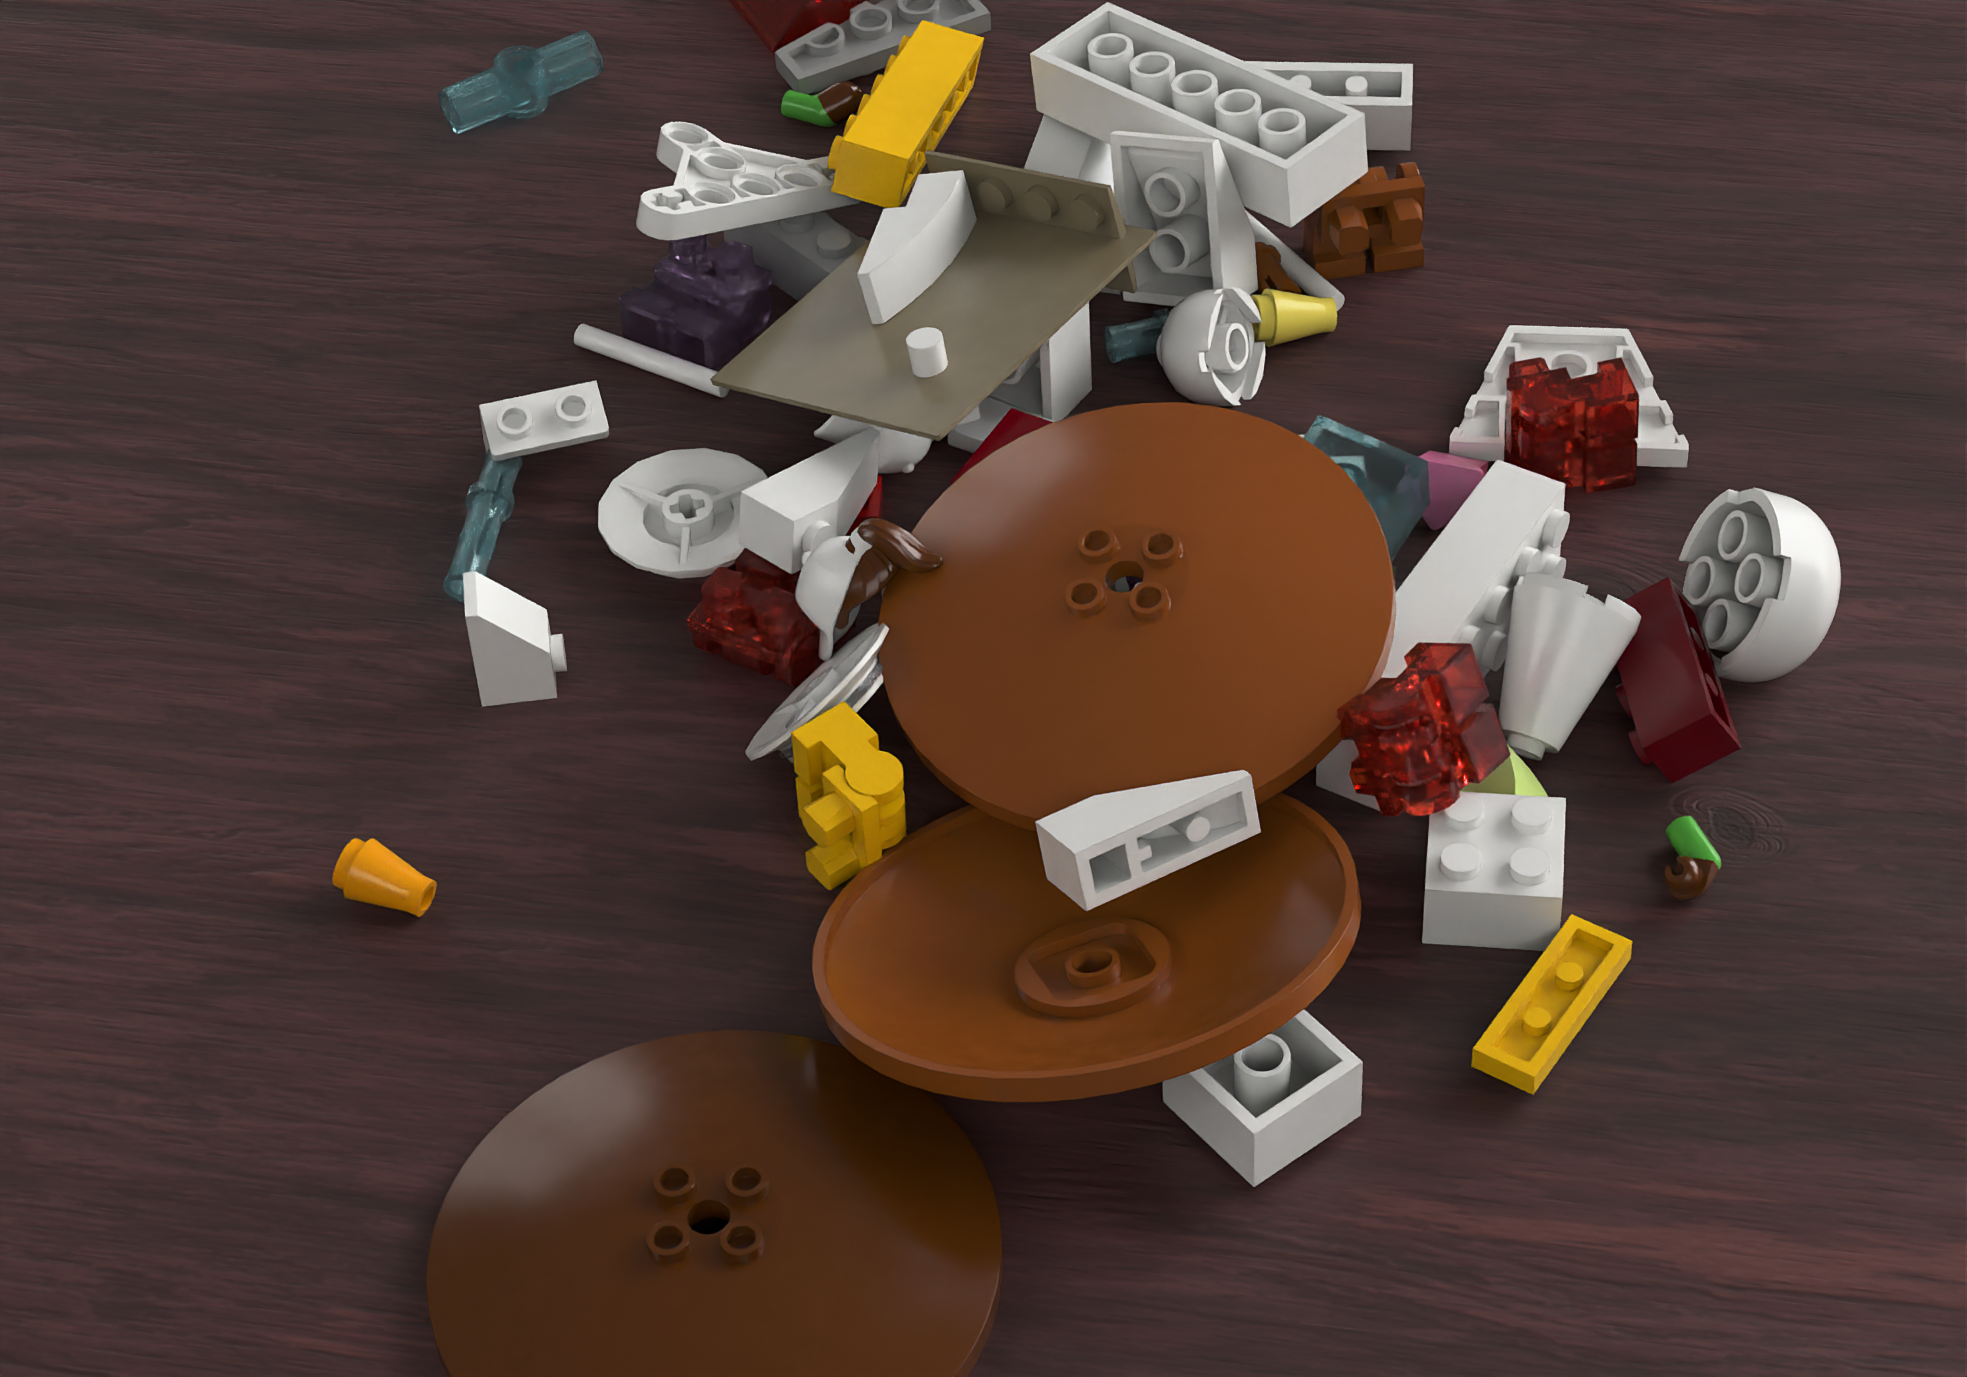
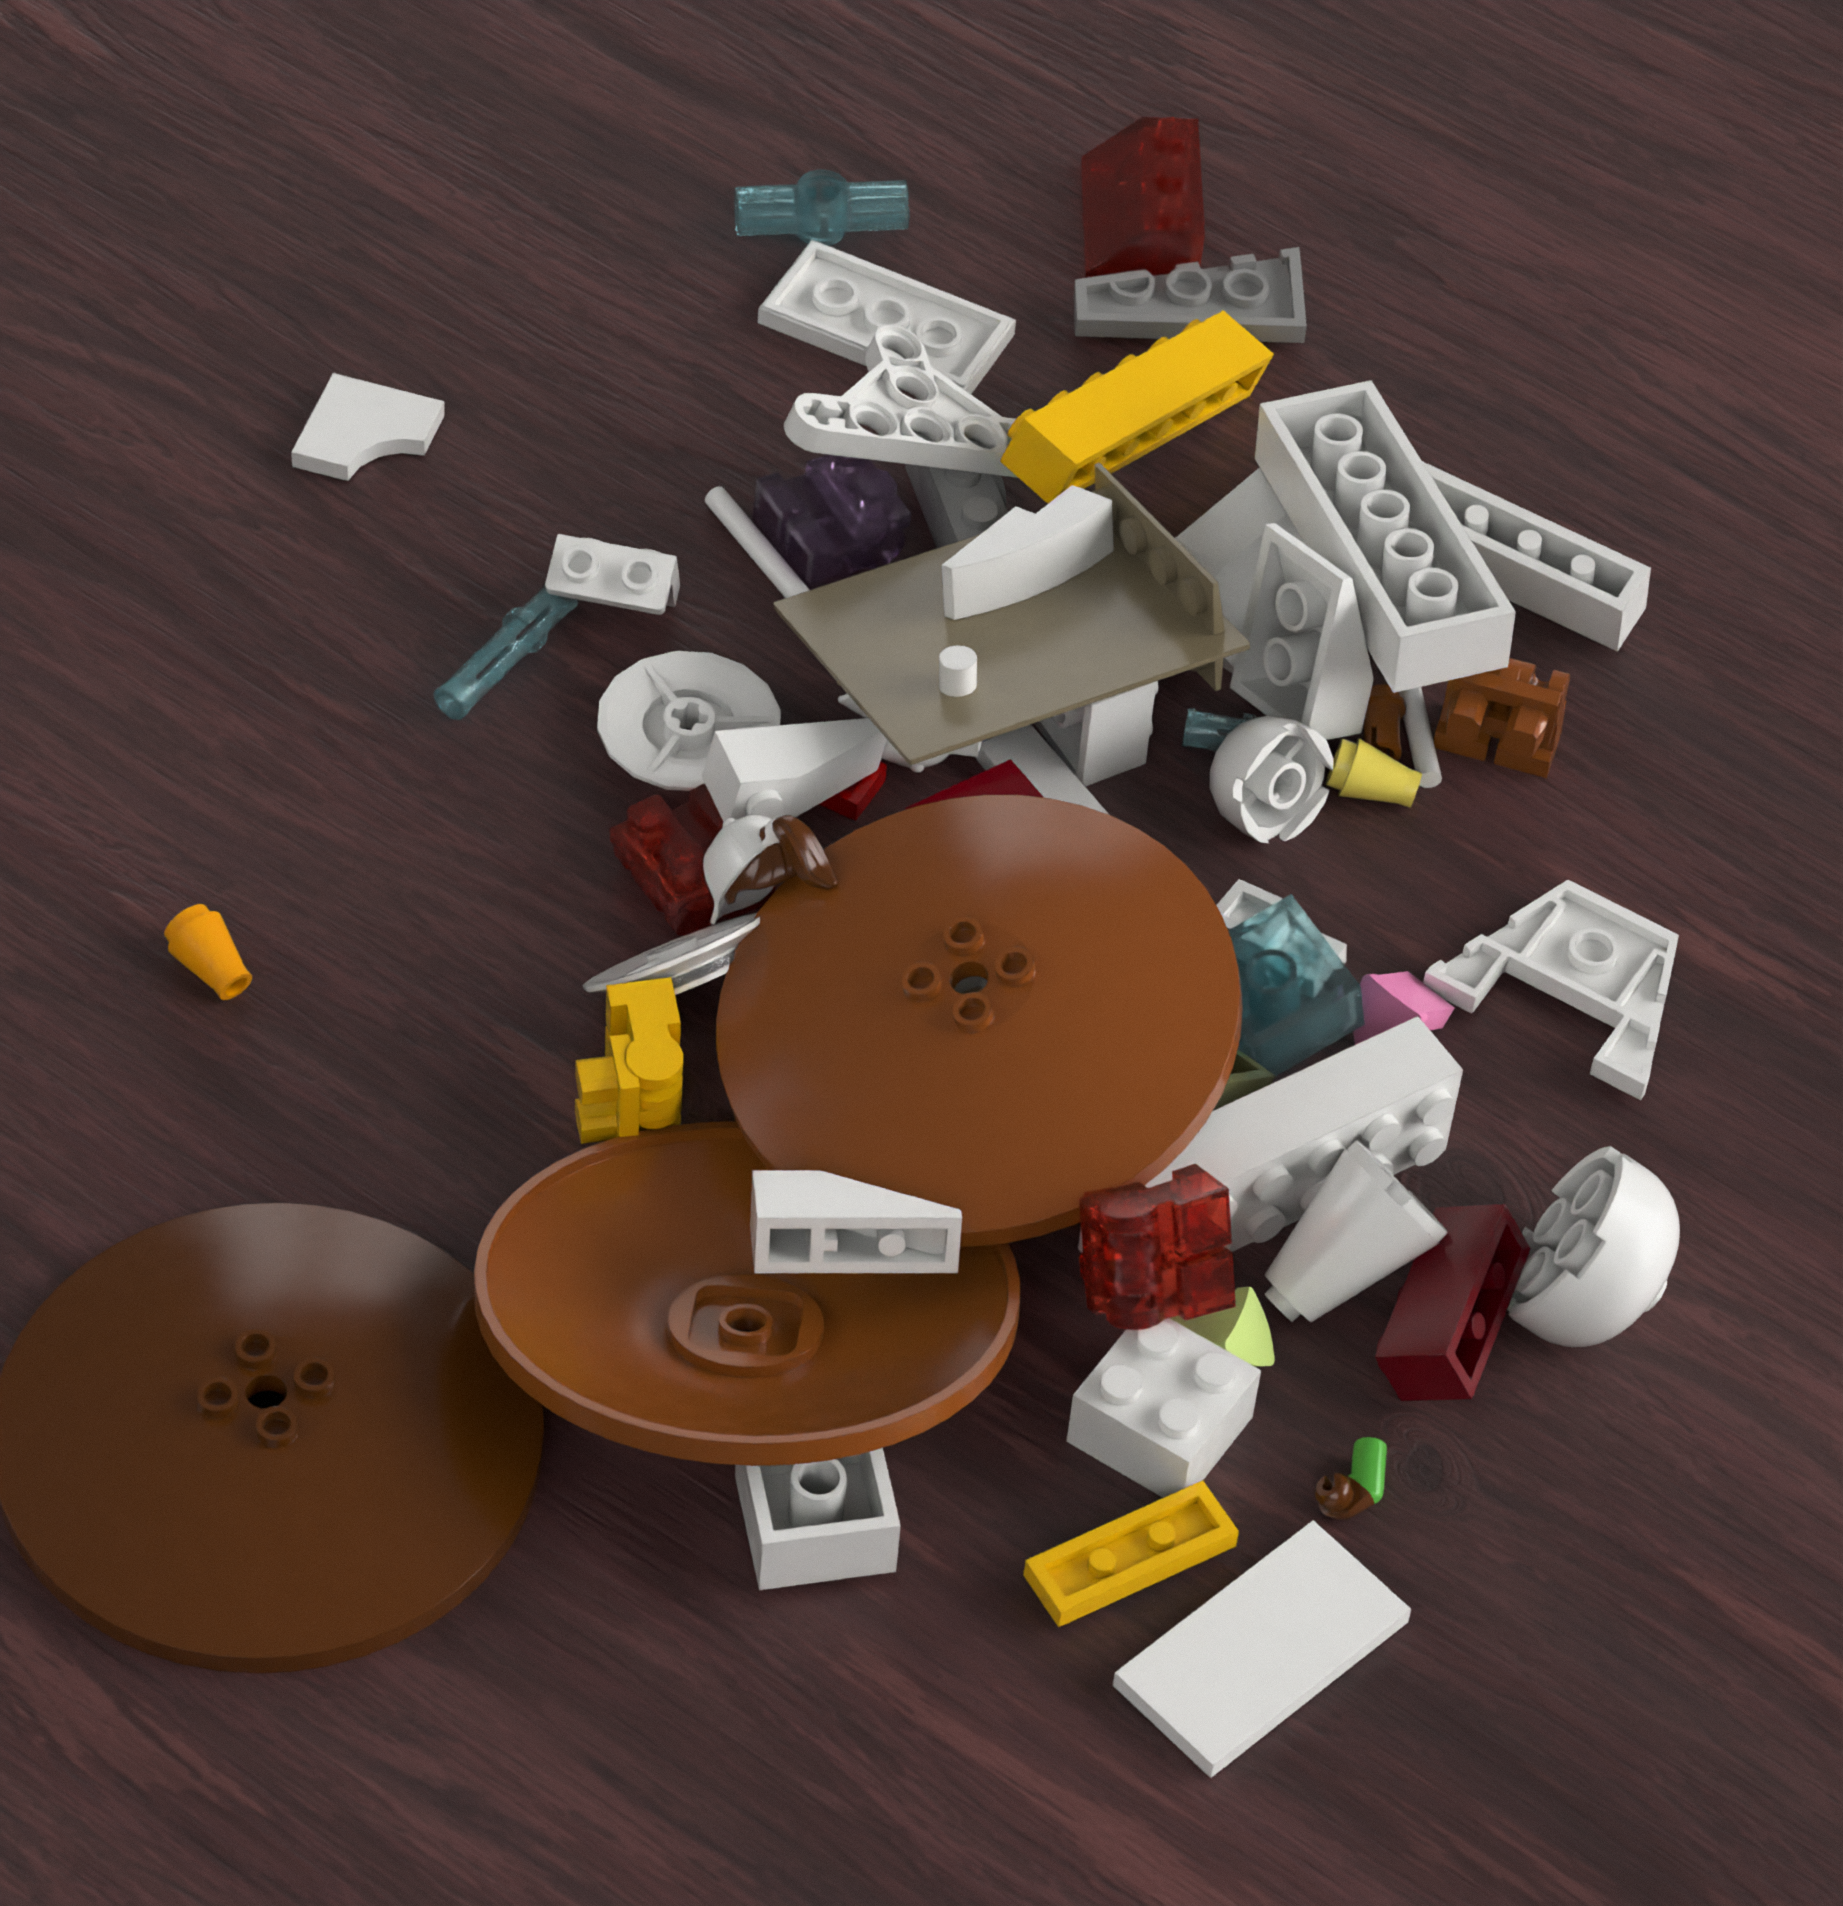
camera: 20 degrees right, 5 degrees up
(229, 401) = (364, 422): none -> white tile
(510, 644) = (444, 779): white slope -> none
(612, 145) = (844, 299): none -> white tile
(824, 108) = (1089, 356): arm -> none
(1573, 427) = (1540, 1013): clear red hips -> none
(1714, 1031) = (1261, 1648): none -> white tile

